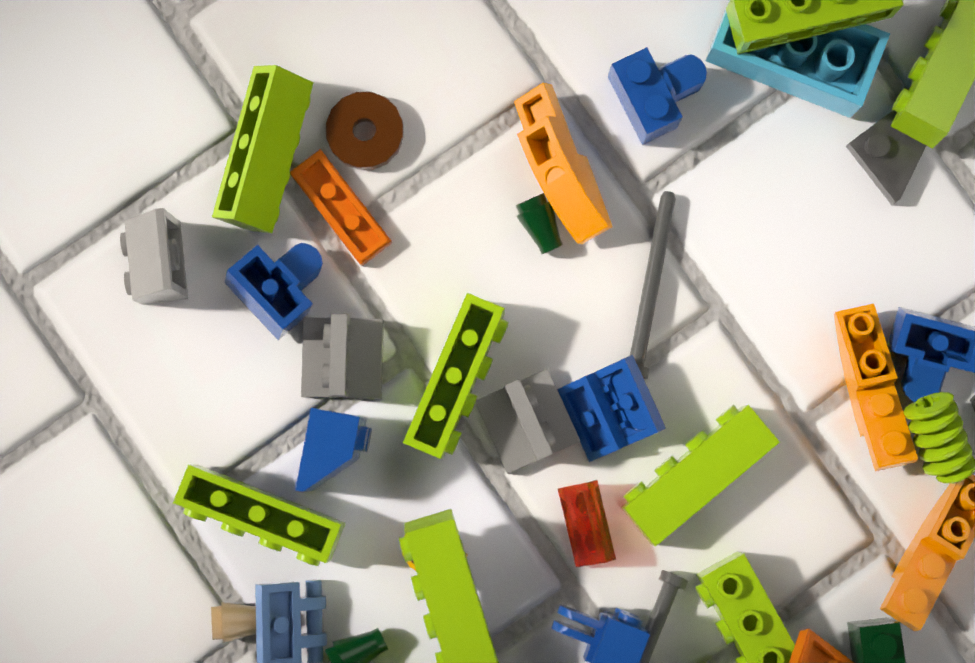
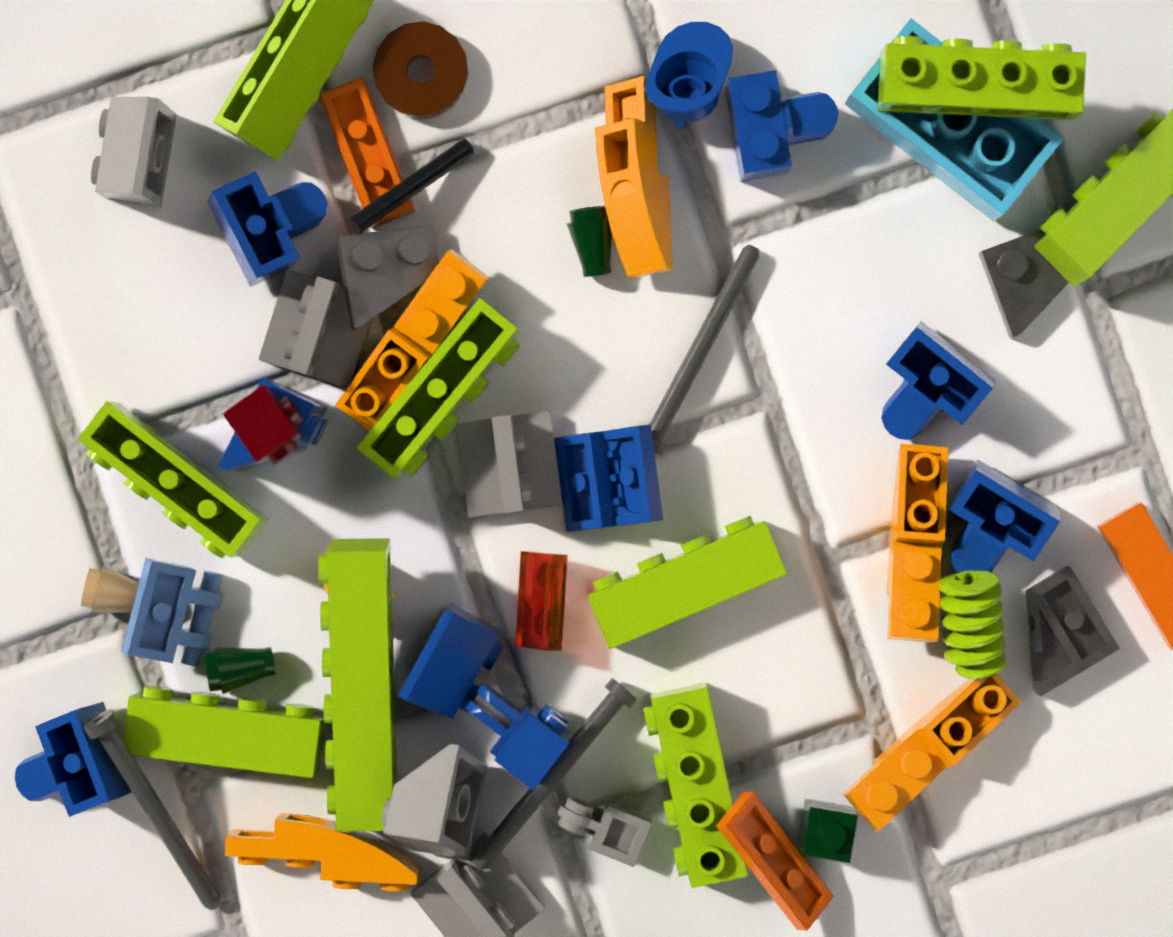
camera: 20 degrees right, 5 degrees up
(326, 444) = (266, 425): none -> dark red brick
(381, 293) = (384, 268): none -> flat silver wing
(384, 222) = (411, 185): none -> black bar
(421, 344) = (413, 339): none -> light orange slope
(530, 596) = (451, 662): none -> blue slope
(578, 69) = (689, 71): none -> blue piece
(845, 254) = (934, 380): none -> blue brick

